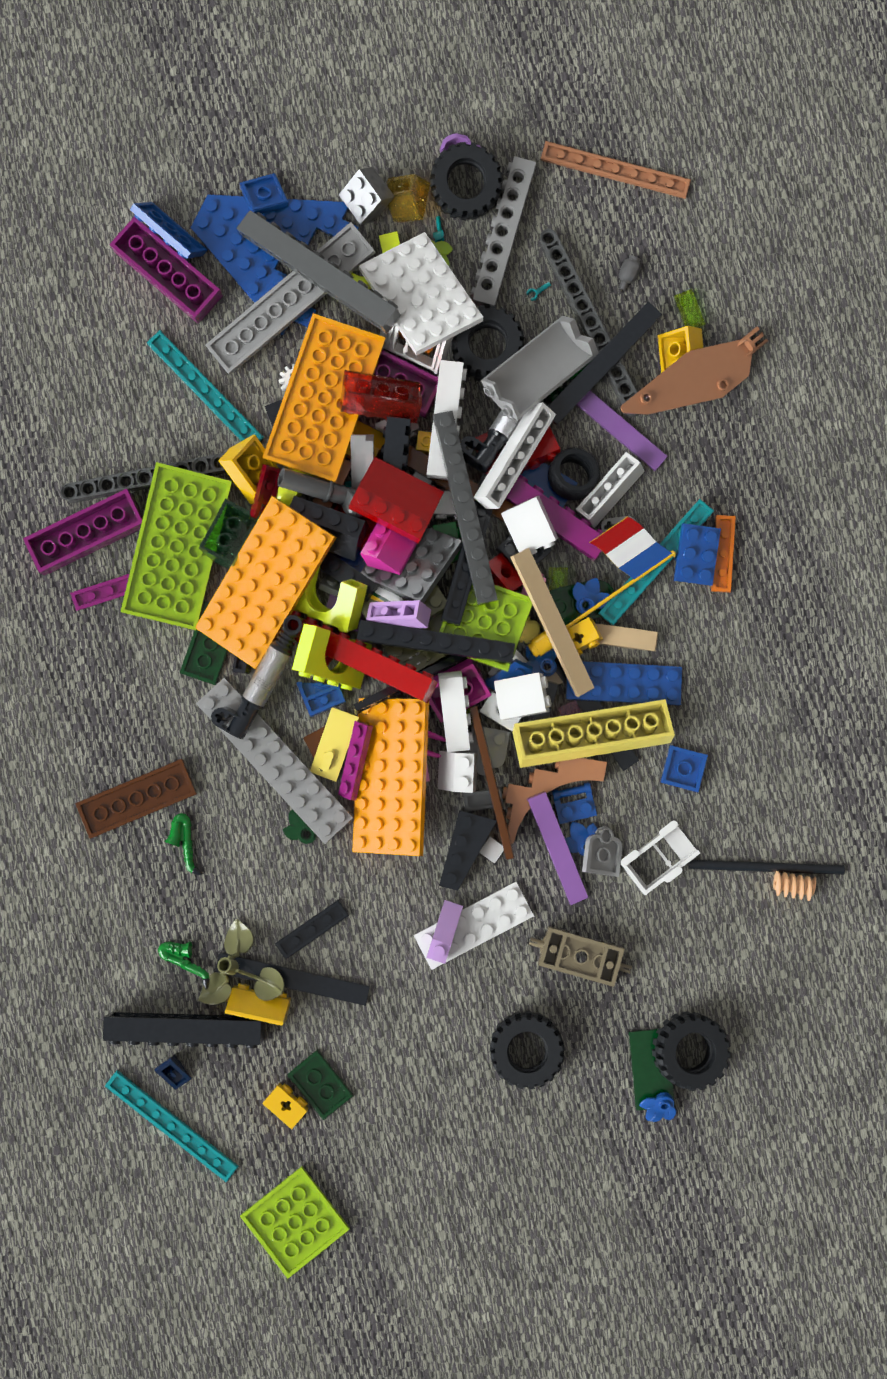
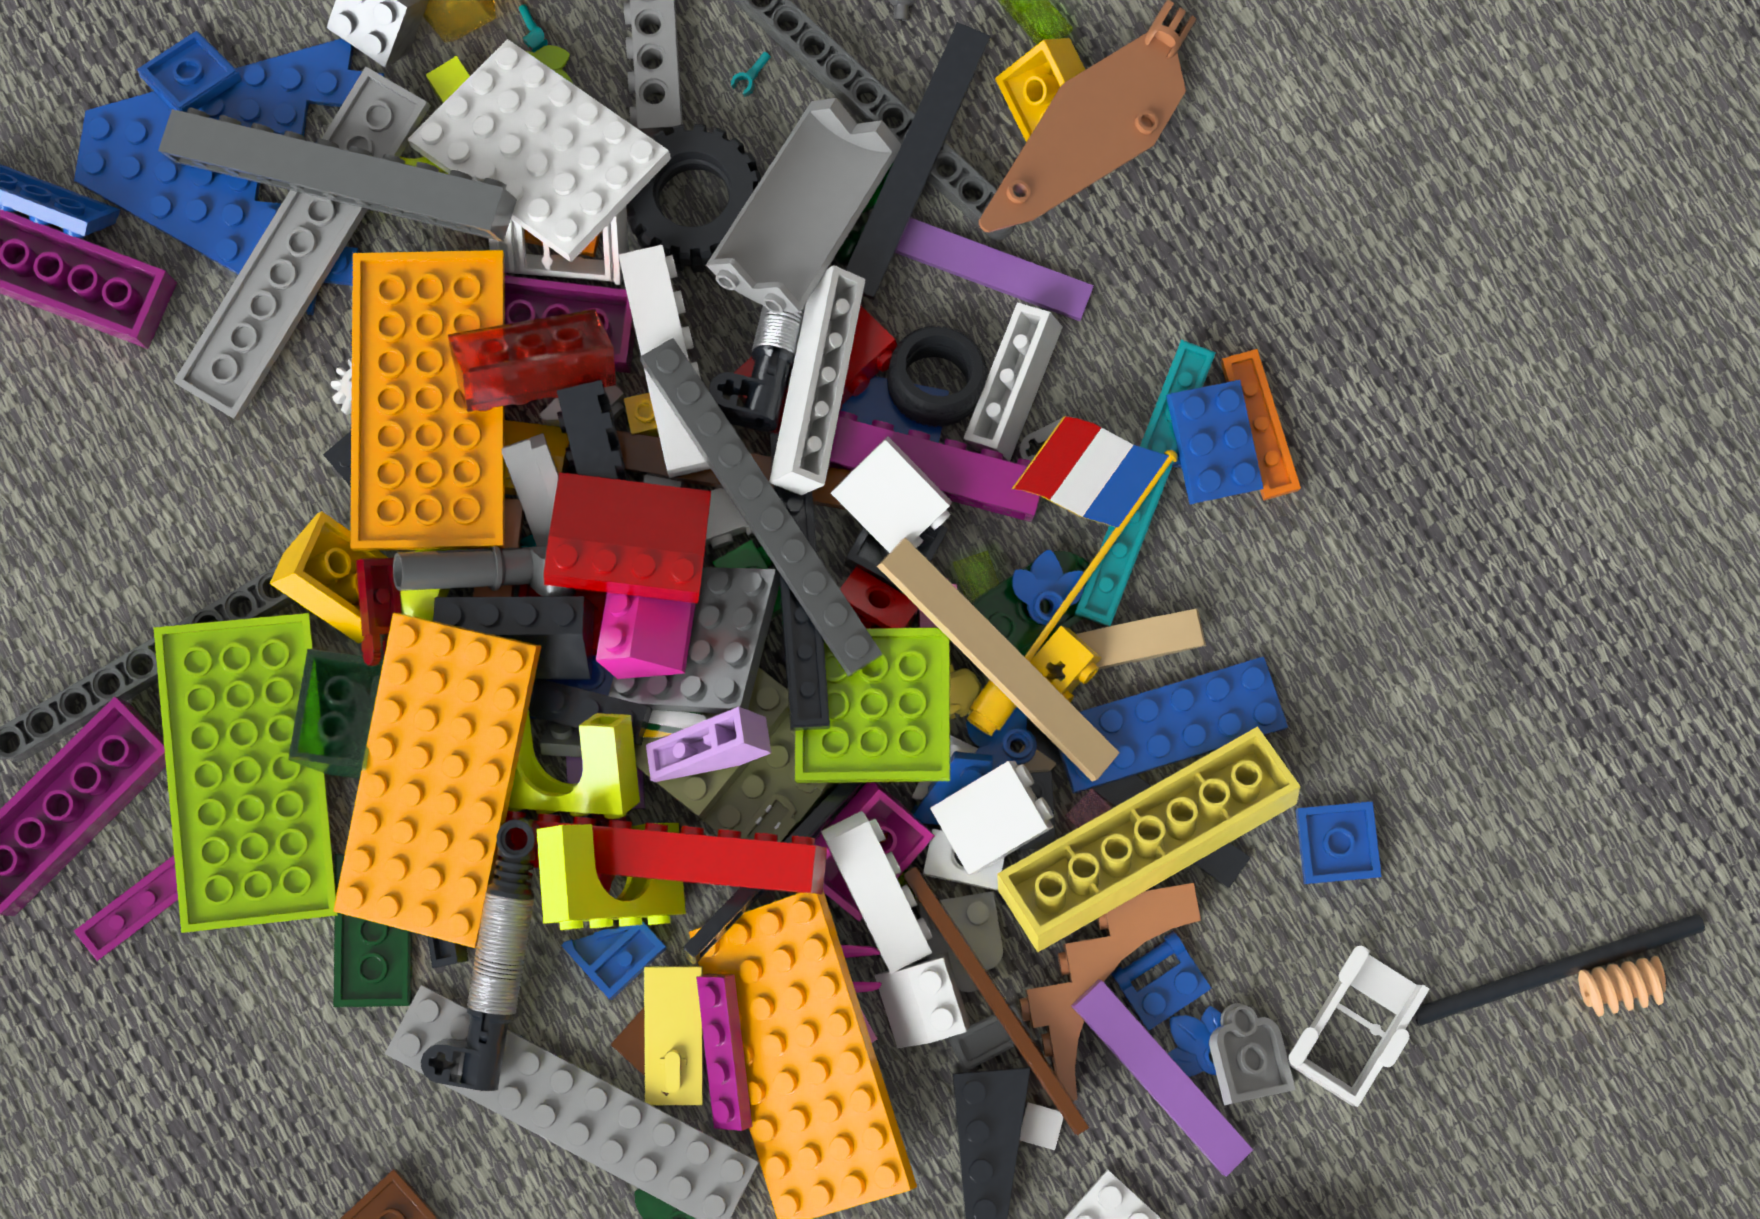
camera: 30 degrees left, 5 degrees down
(202, 387) = (194, 460): teal tile -> none
(436, 642) = (796, 773): black plate -> none

